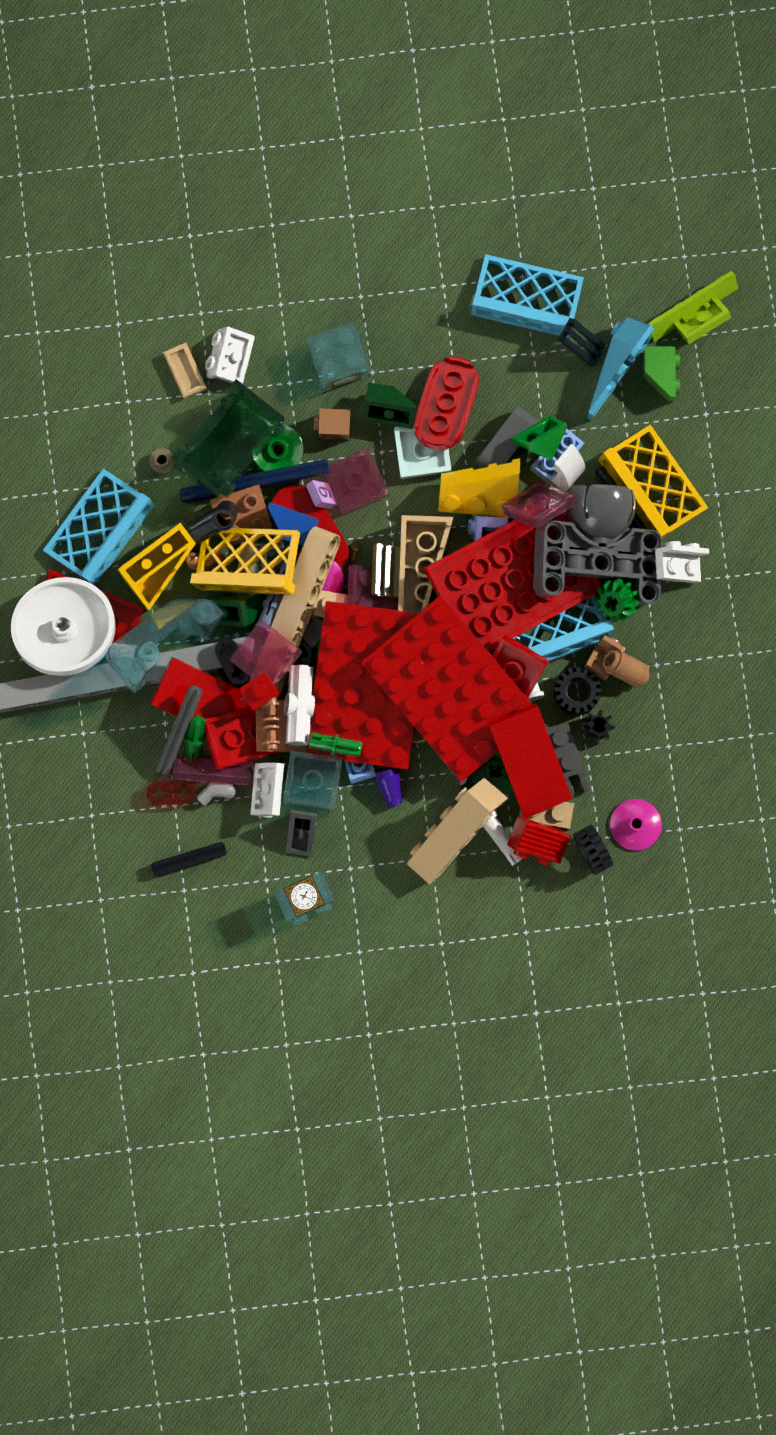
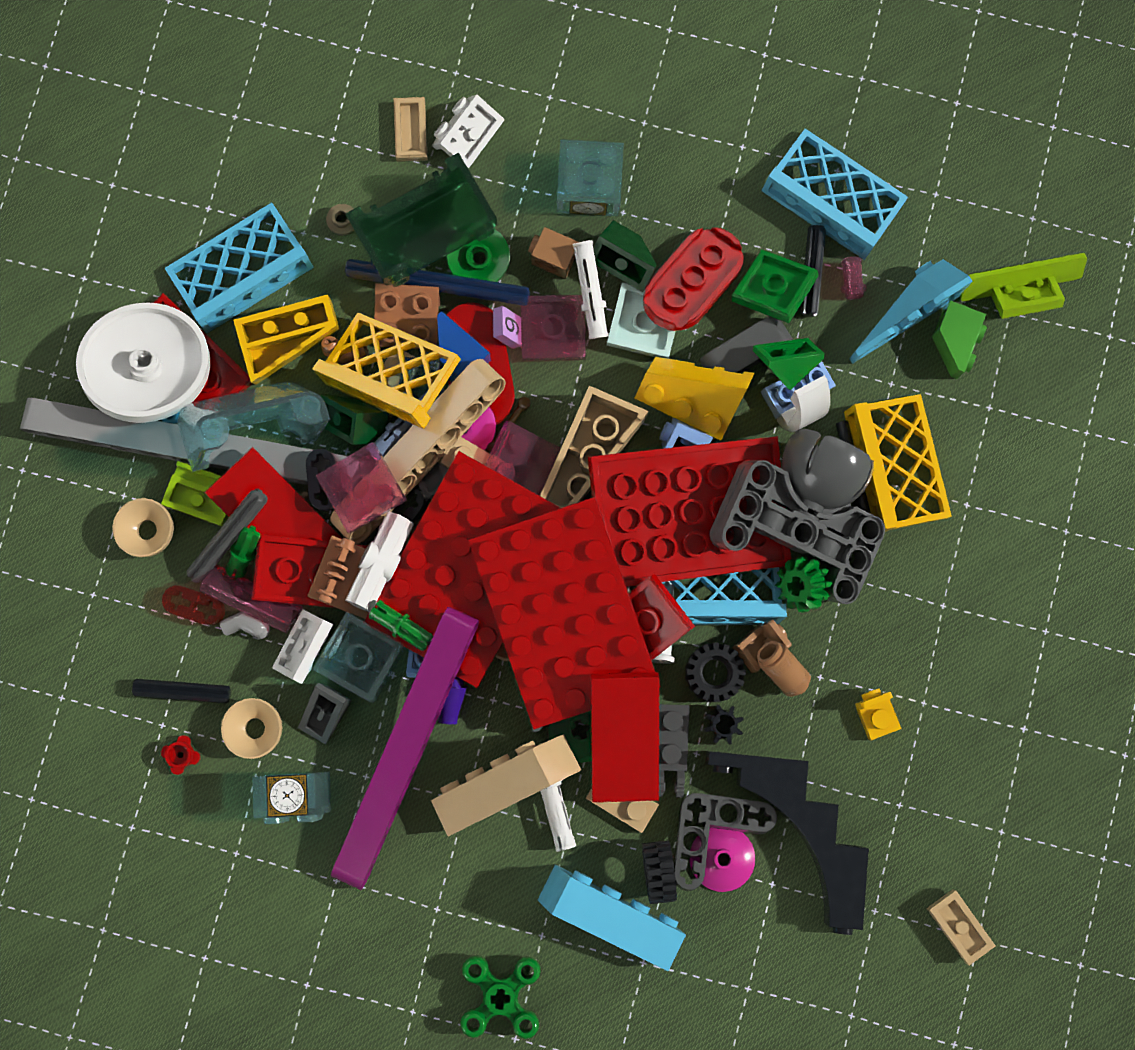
camera: 20 degrees right, 0 degrees up
(106, 737) = (131, 517): none -> tan piece
(136, 712) = (188, 496): none -> lime plate
(212, 523) = (367, 308): black piece -> none
(215, 904) = (171, 751): none -> red plate
(244, 853) = (235, 723): none -> tan piece
(258, 692) = (334, 527): red bracket -> none
(373, 833) = (404, 748): none -> magenta beam
(389, 468) = (585, 255): none -> white pin
(390, 571) = (556, 420): olive tile -> none
(503, 979) = (511, 1008): none -> green gear
(509, 385) = (775, 286): none -> green plate
(533, 362) = (814, 259): none -> black axle
(538, 505) = (755, 435): clear pink plate -> none
(538, 840) = (597, 835): red brick -> none
(566, 358) = (852, 278): none -> clear pink pin
(571, 895) = (612, 918): none -> medium azure wedge
(594, 350) = (888, 263): black tile -> none
(615, 799) = (712, 819): none -> dark grey beam
(659, 754) = (839, 866): none -> black arch
(679, 562) = (895, 567): white bracket -> none
(708, 675) = (877, 714): none -> yellow bracket

